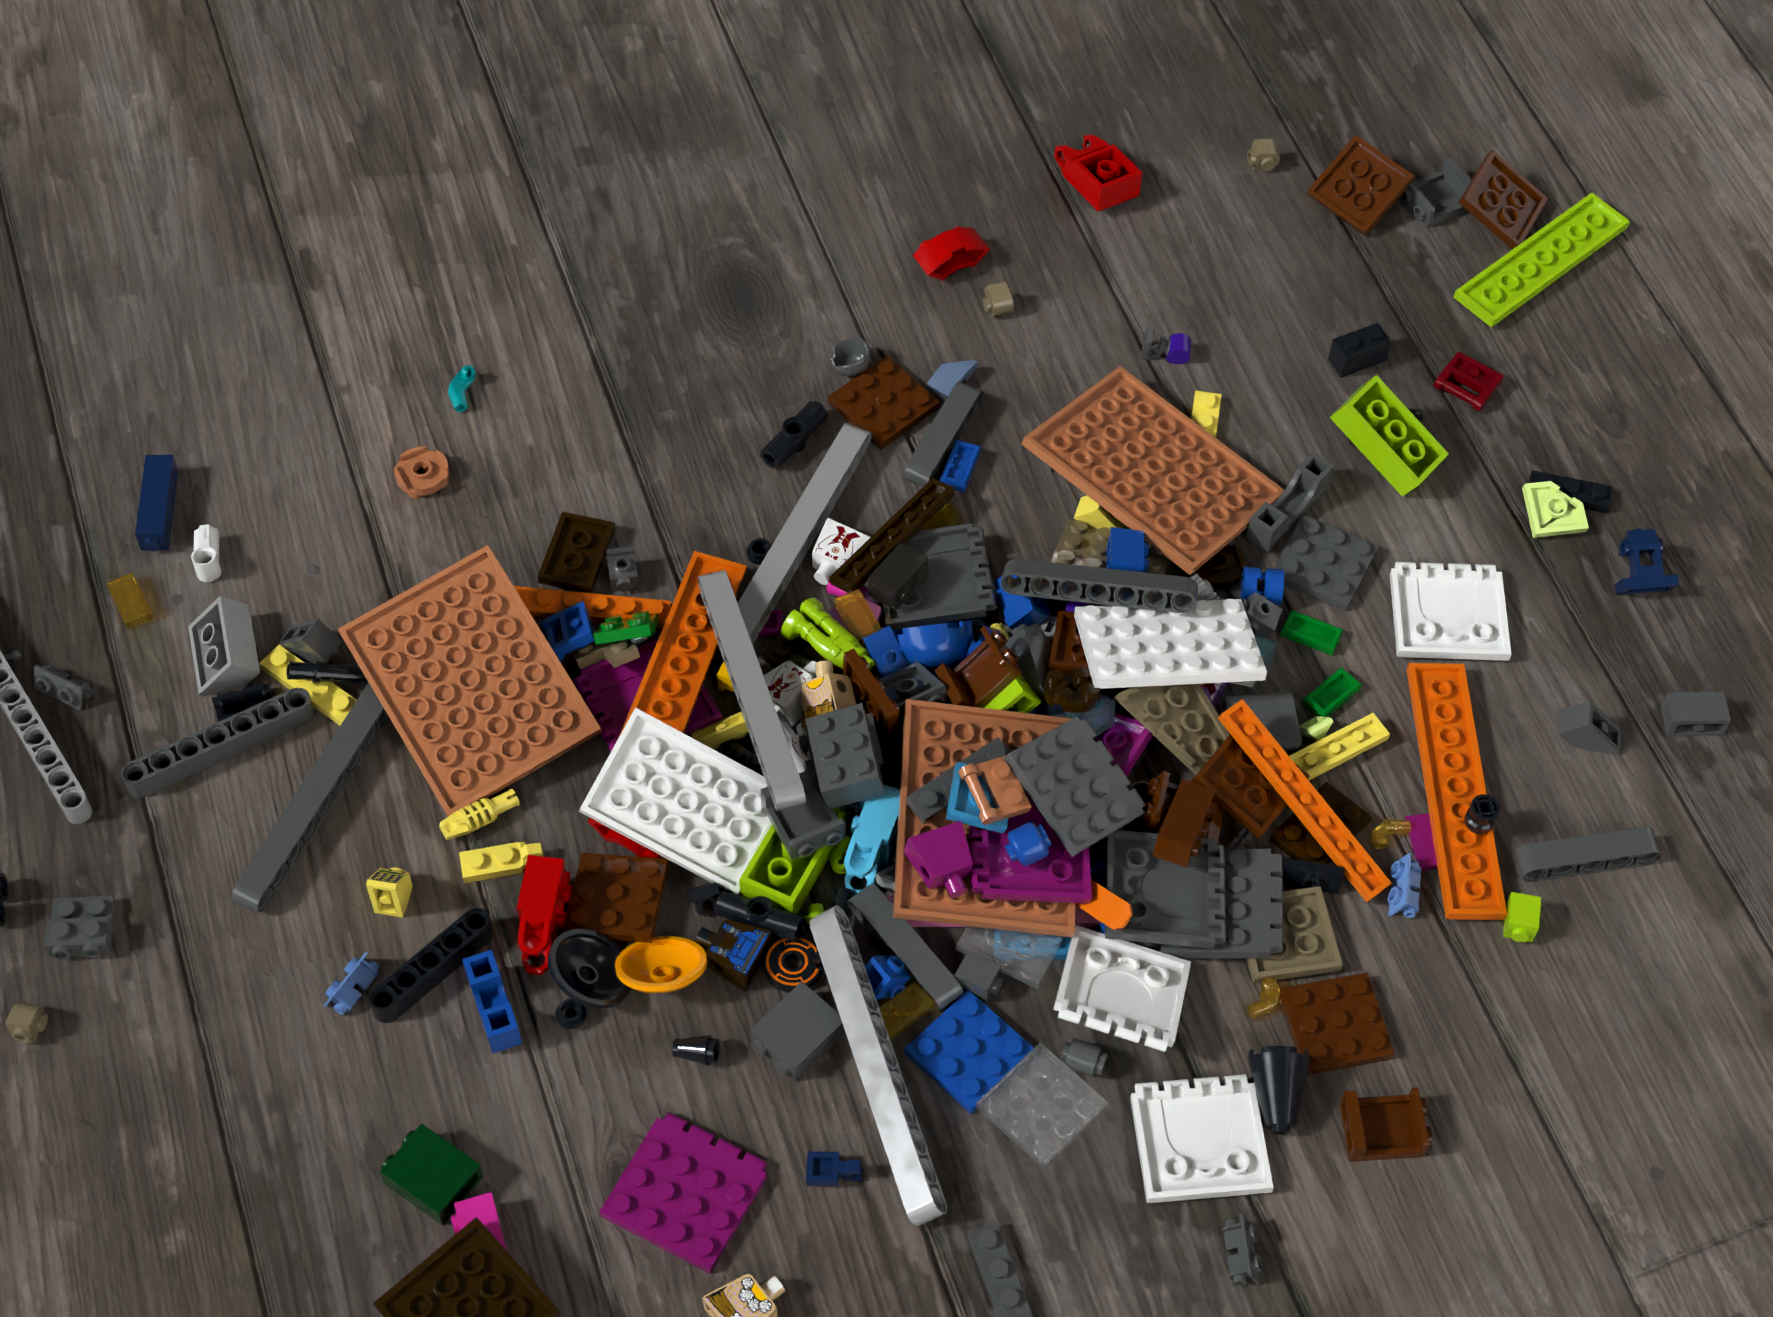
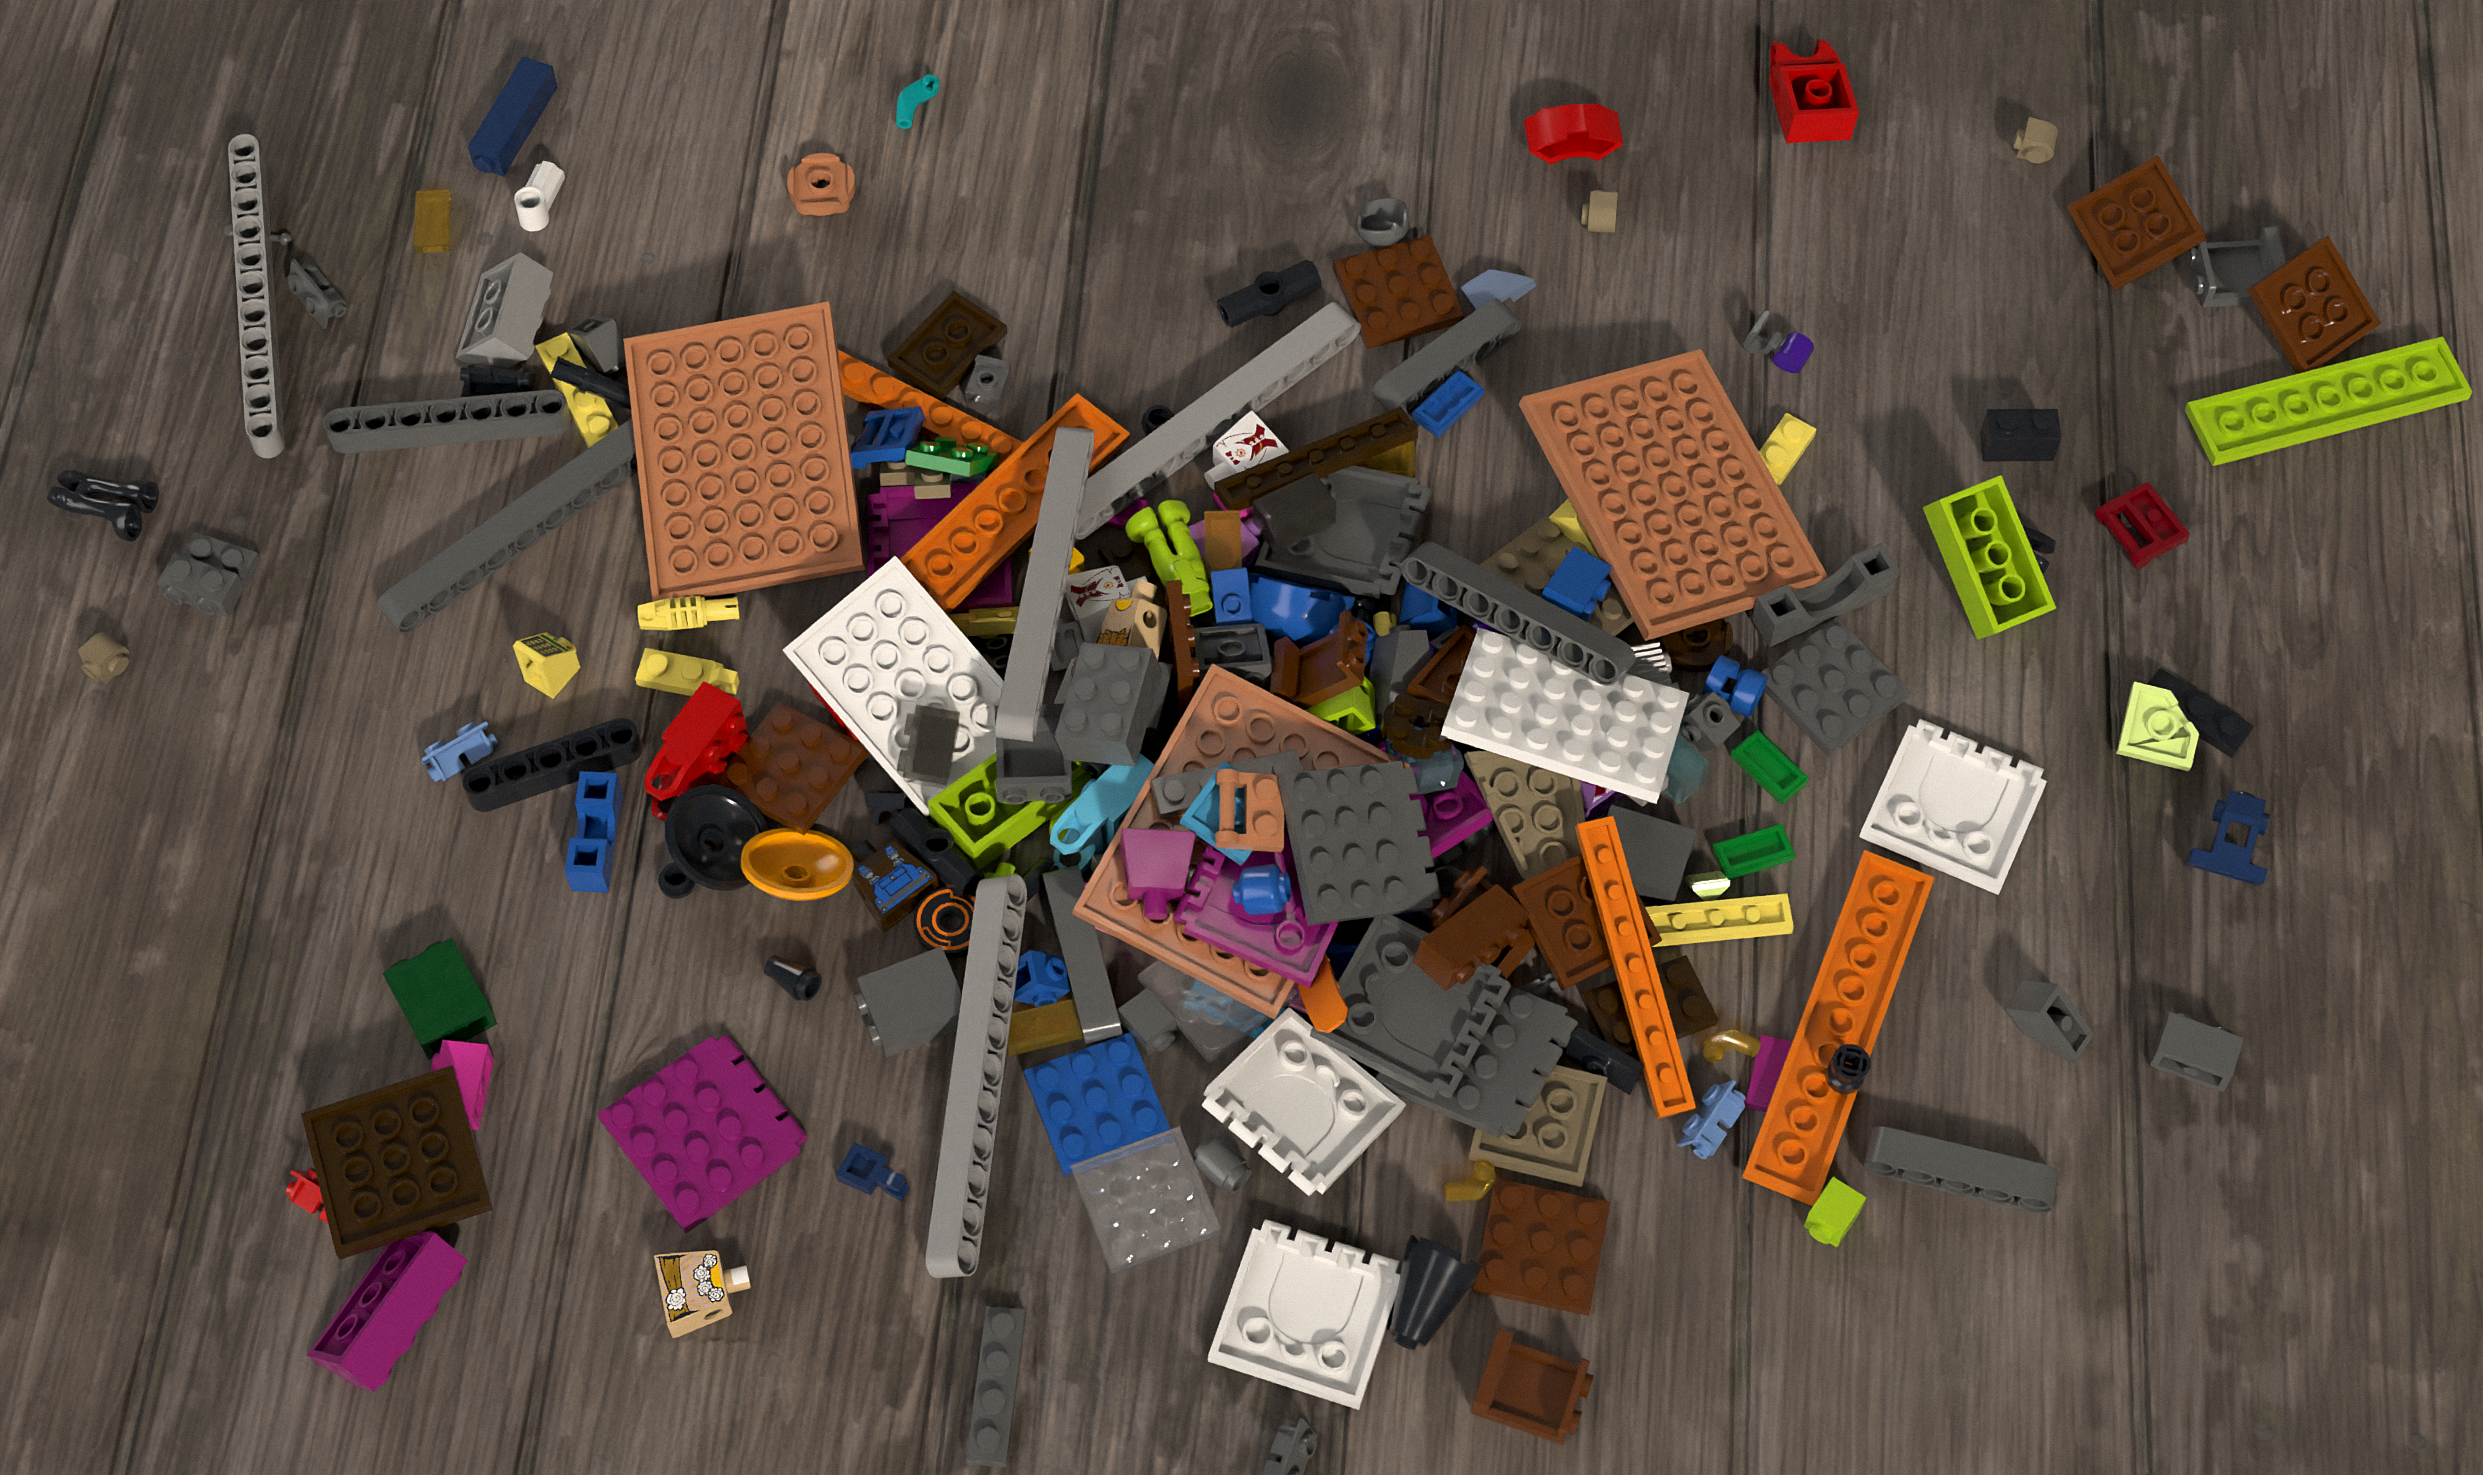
camera: 25 degrees right, 5 degrees up
(723, 838) = (930, 746): none -> clear smoke brick

